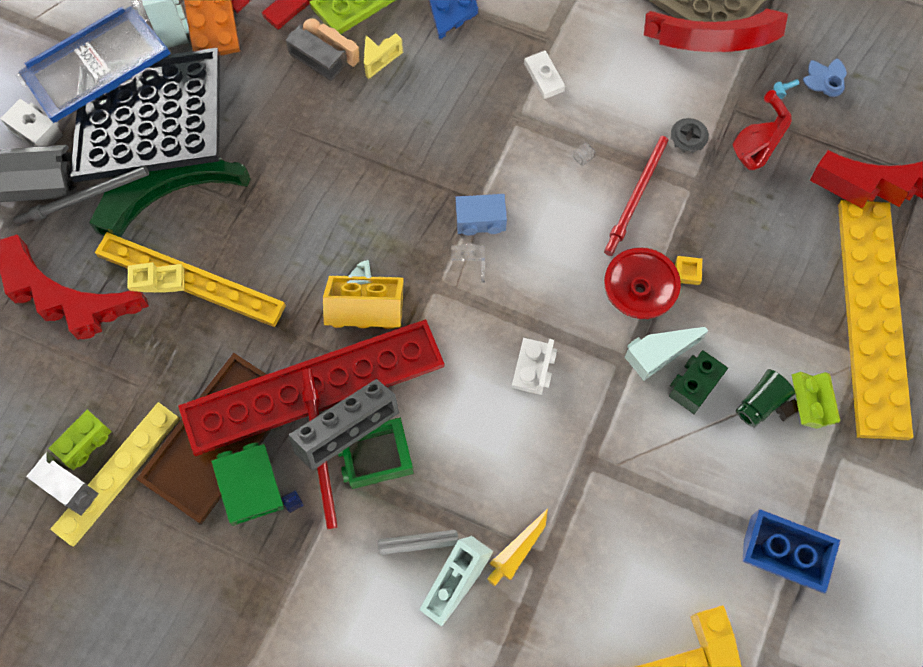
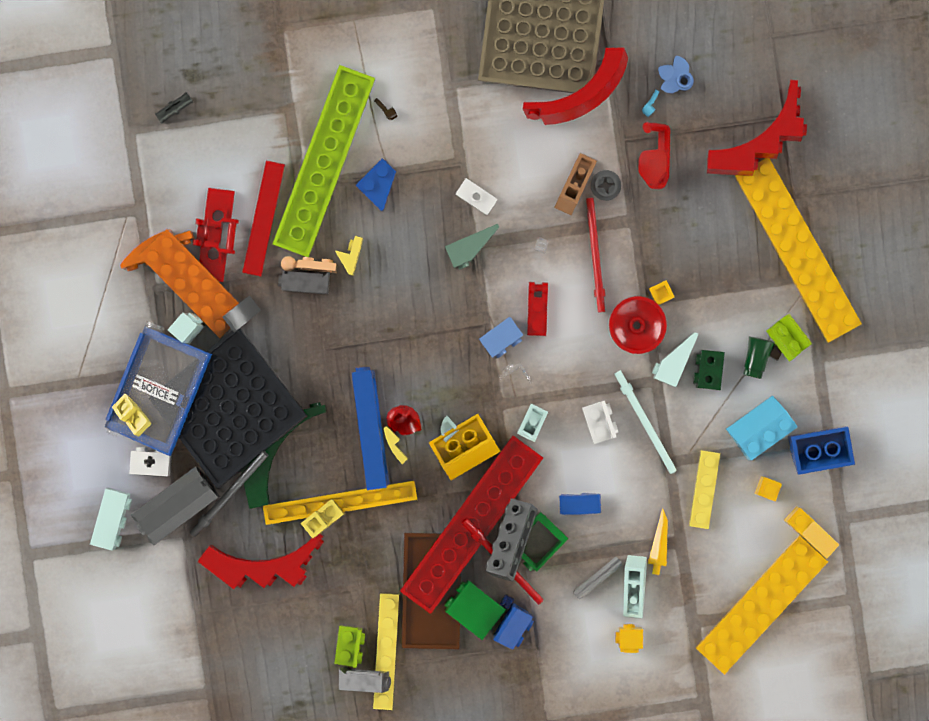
camera: 25 degrees left, 20 degrees up
(49, 67) = (131, 414): none -> light yellow slope
(227, 38) = (241, 313): none -> dark grey slope
(272, 205) = (370, 428): none -> blue window
(277, 532) = (513, 626): none -> blue slope
(290, 251) = (392, 439): none -> light yellow slope
(318, 233) = (404, 420): none -> red hair
(408, 641) = (629, 638): none -> yellow brick
(453, 441) = (580, 504): none -> blue slope
(456, 318) = (532, 422): none -> light aqua slope
(508, 111) = (467, 248): none -> sand green slope
(538, 212) = (537, 309): none -> red plate
(587, 349) = (627, 388): none -> light aqua bar
(611, 517) = (704, 489): none -> light yellow plate
(654, 115) = (575, 184): none -> medium nougat slope
(693, 561) = (768, 488): none -> yellow brick
(725, 486) = (761, 428): none -> medium azure slope

